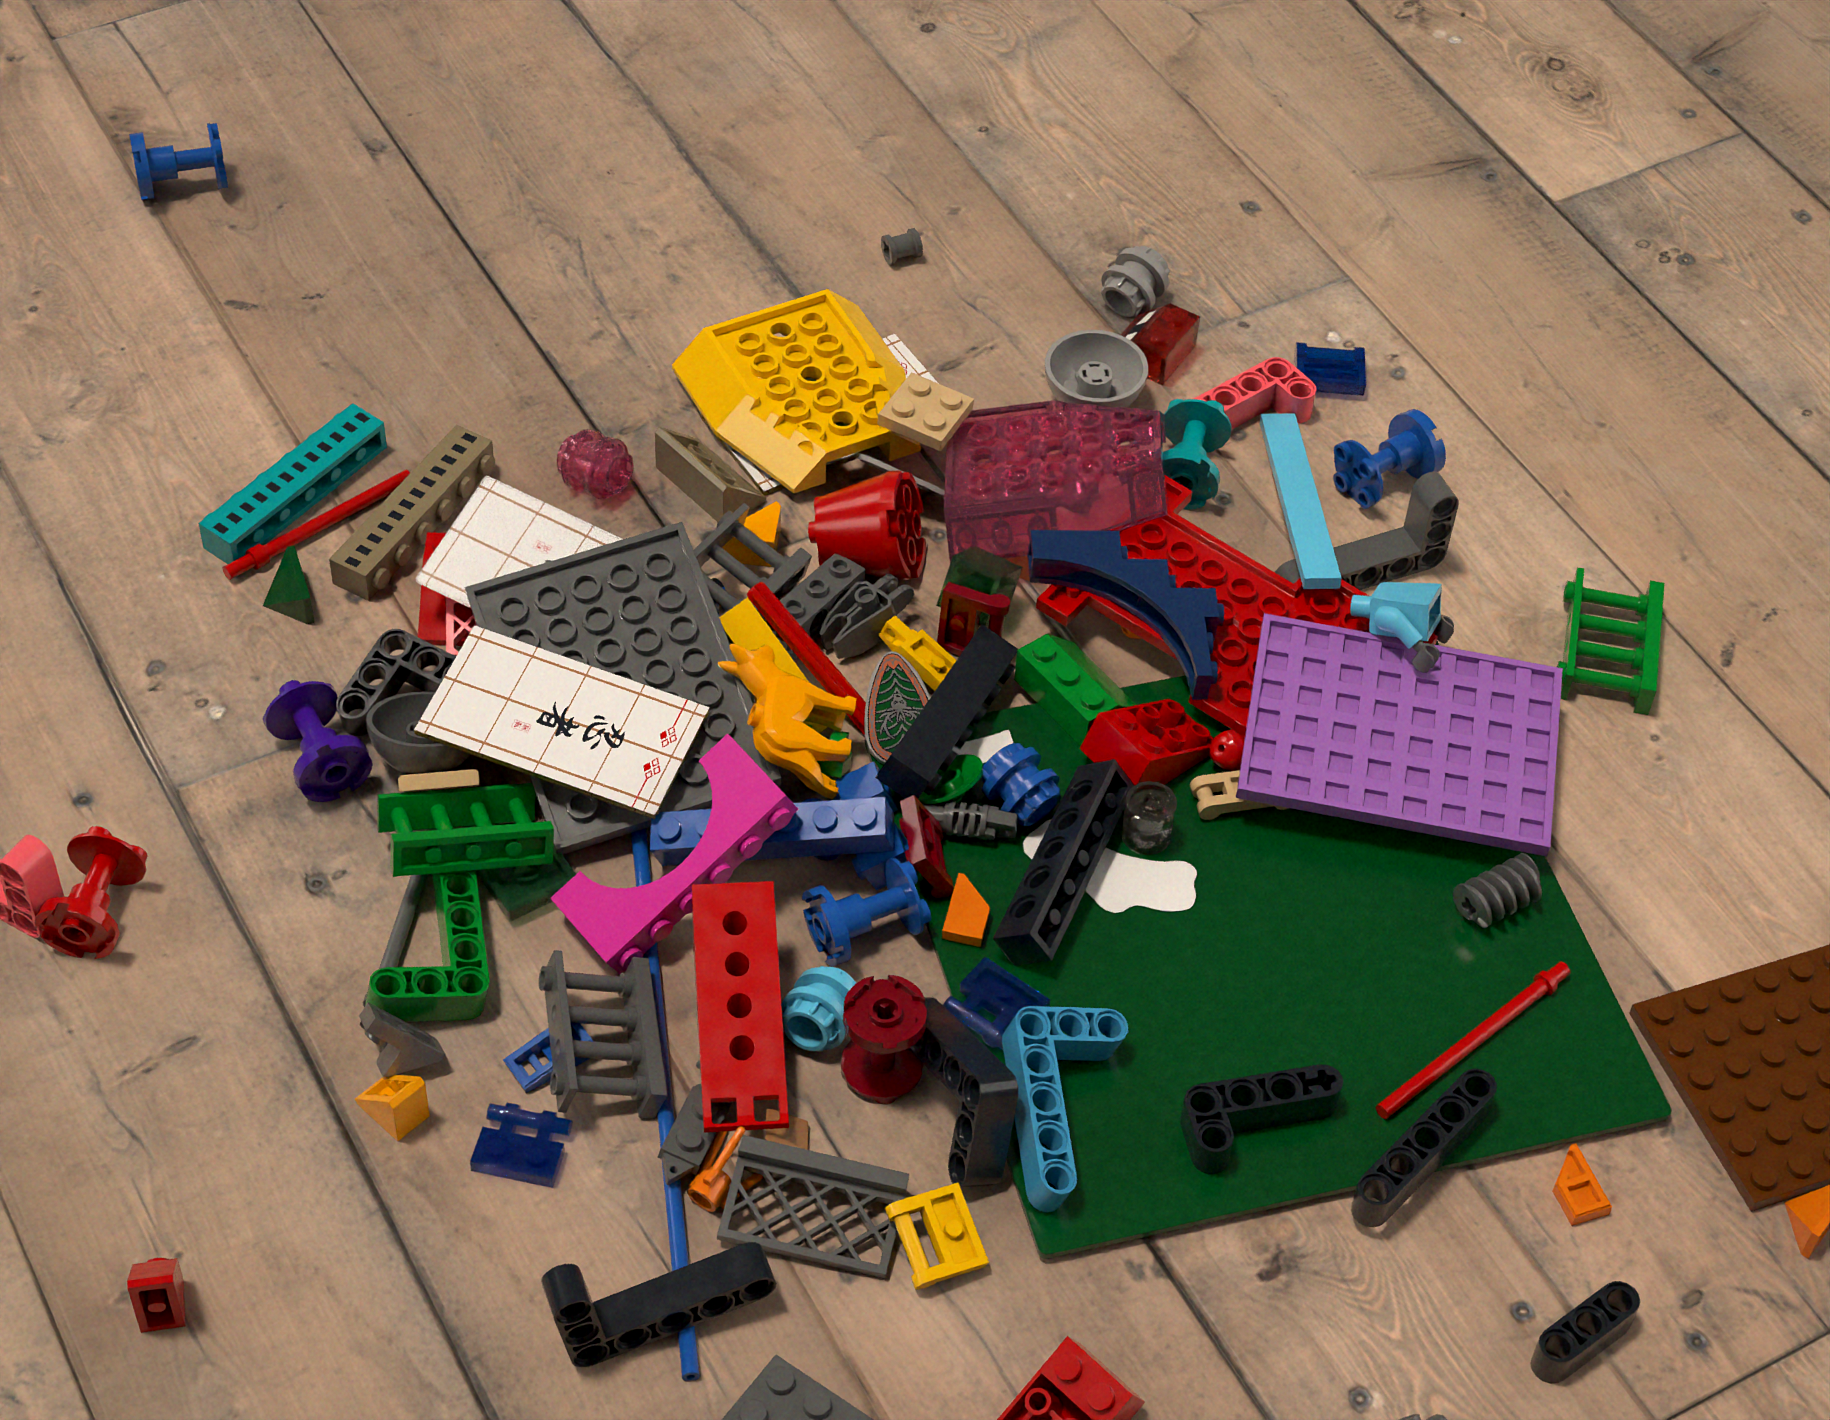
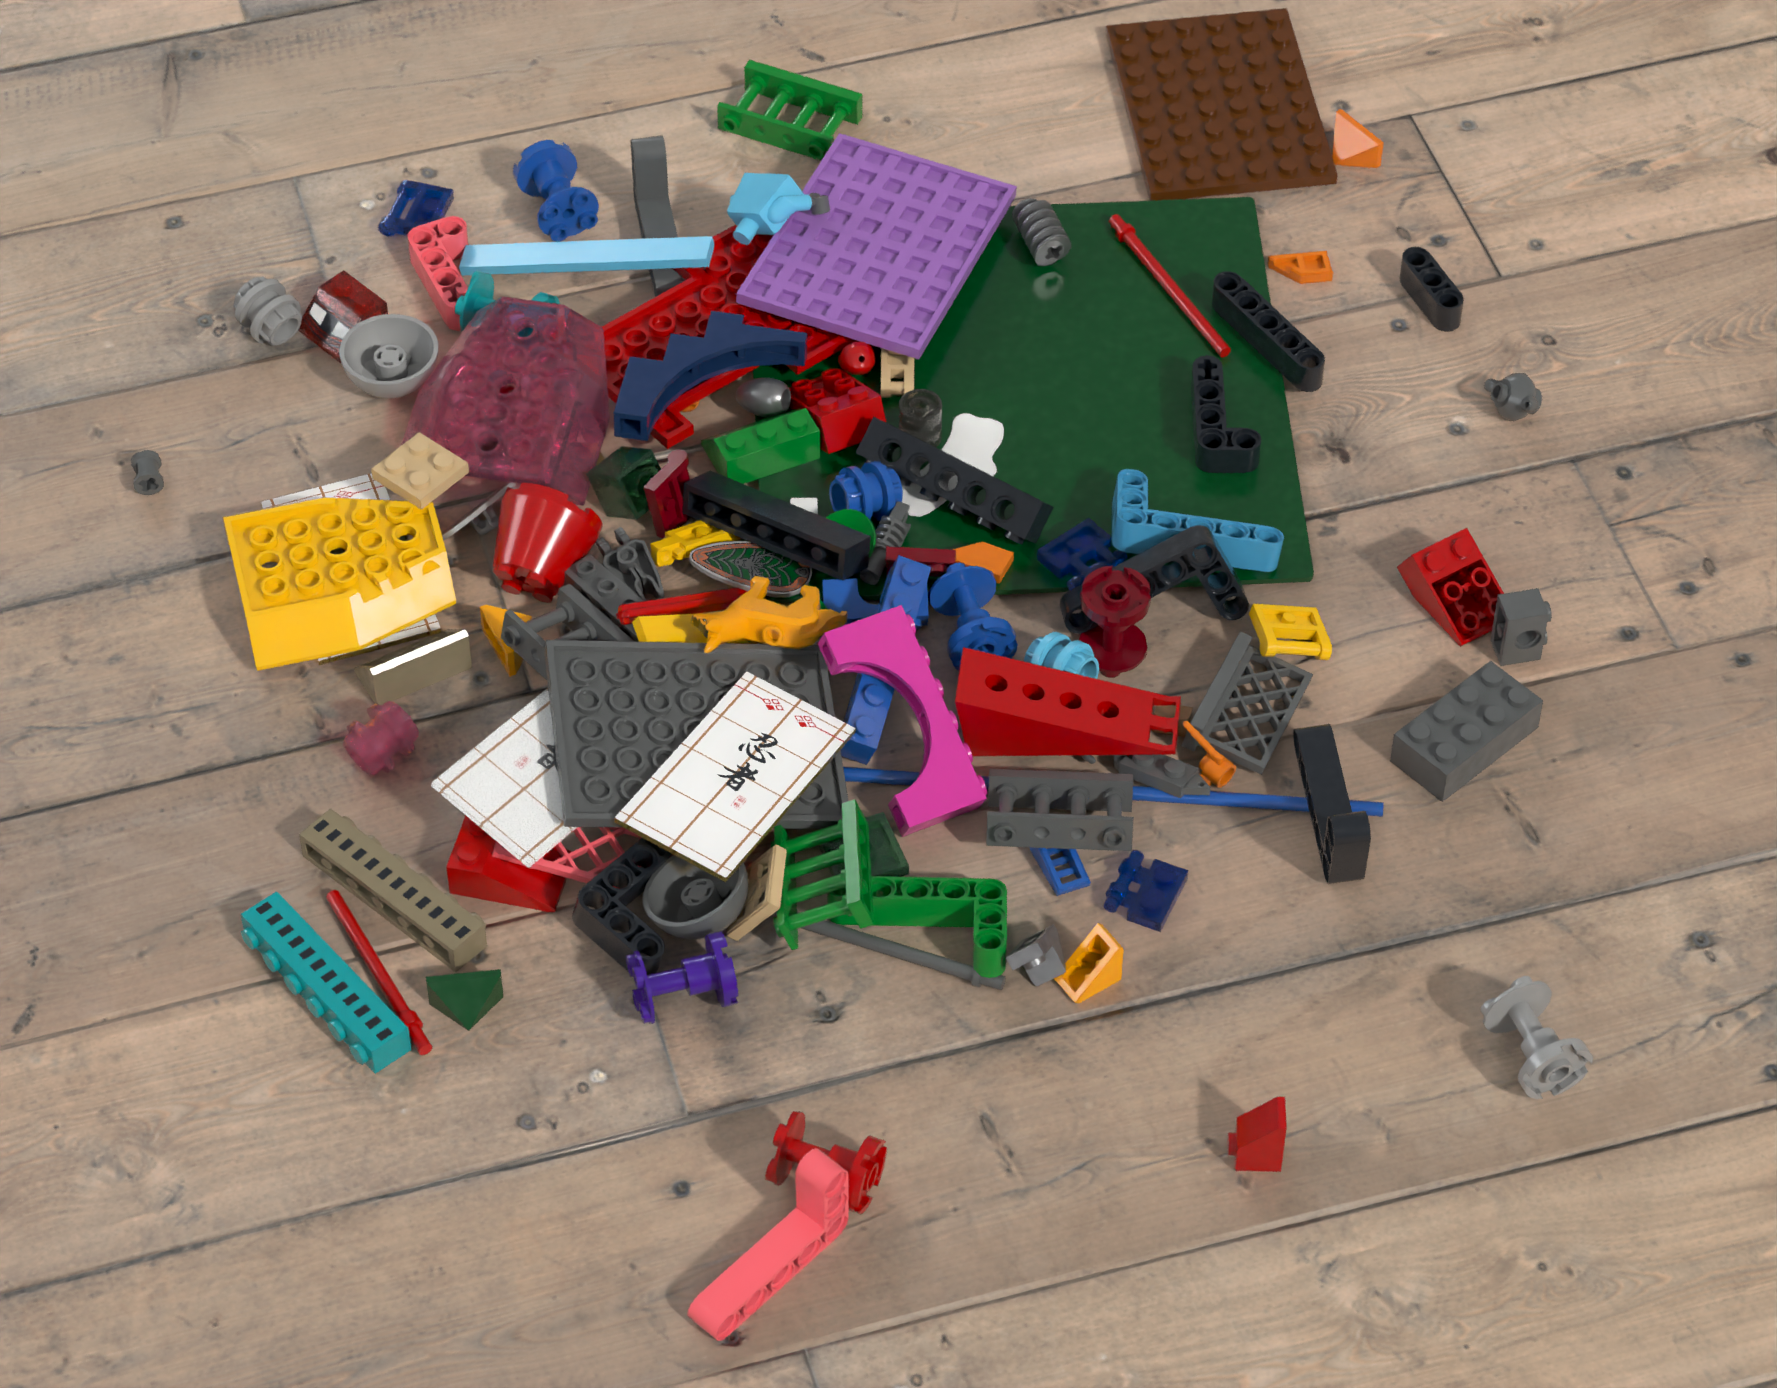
camera: 75 degrees left, 0 degrees up
(1143, 679) = (764, 397): none -> flat silver animal

